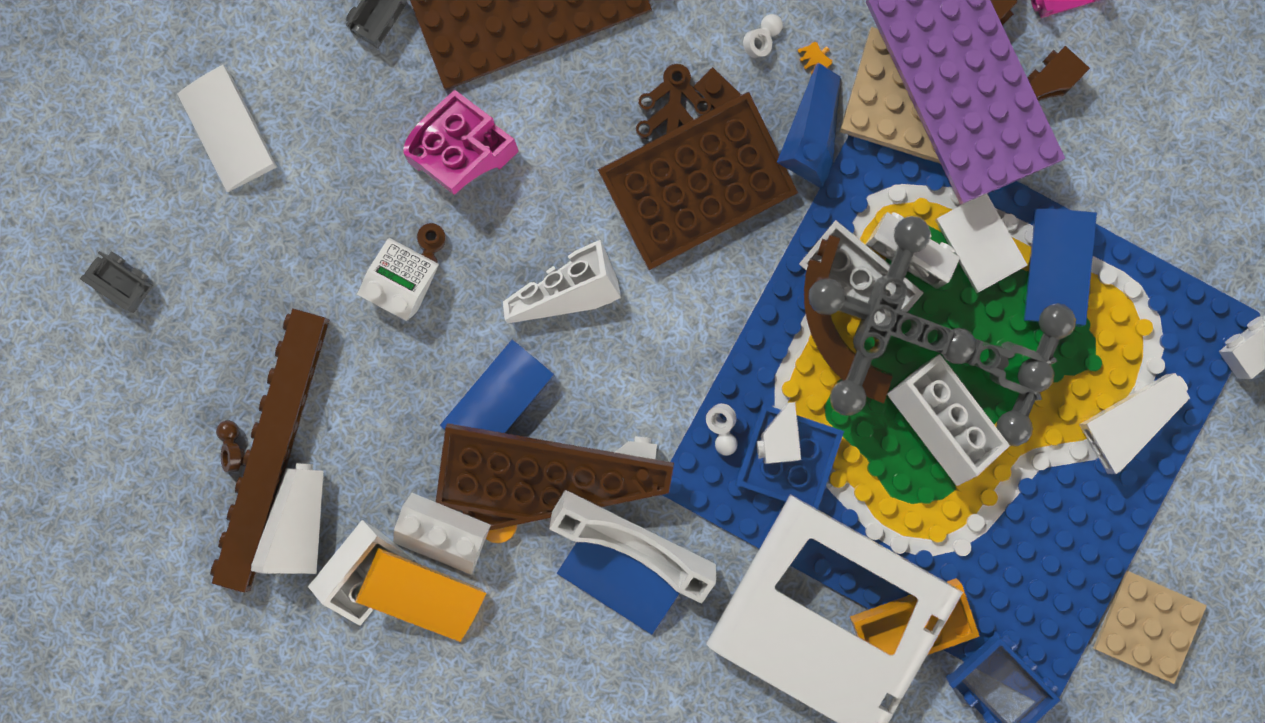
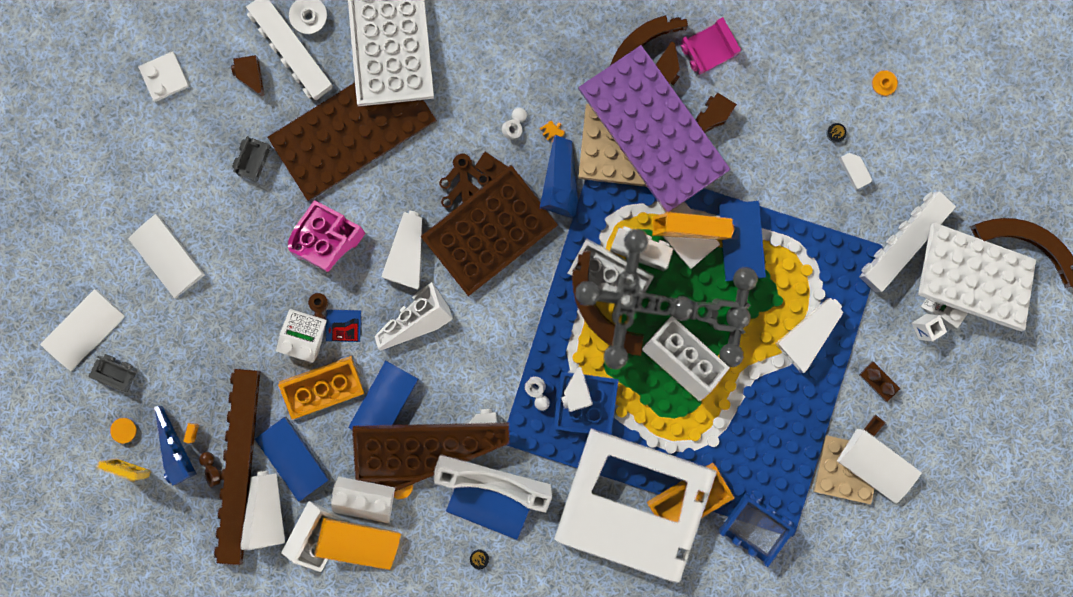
camera: 10 degrees left, 0 degrees up
(86, 211) = (83, 330): none -> white slope
(104, 421) = (124, 469): none -> yellow tile
(116, 366) = (123, 430): none -> light orange piece
(181, 417) = (174, 457): none -> blue wedge
(212, 389) = (191, 433): none -> light orange tile
(350, 454) = (292, 459): none -> blue slope
(412, 360) = (321, 387): none -> light orange slope
(460, 278) = (343, 325): none -> sticker
(570, 193) = (406, 252): none -> white slope
(591, 652) = (479, 559): none -> black tile
(993, 230) = (692, 226): none -> light orange slope
(1197, 573) = (874, 425): none -> reddish brown piece
(1198, 630) = (878, 466): none -> white slope
(1219, 508) = (879, 381): none -> reddish brown tile
(1223, 138) = (836, 132): none -> black tile
(1241, 197) = (855, 170): none -> white piece

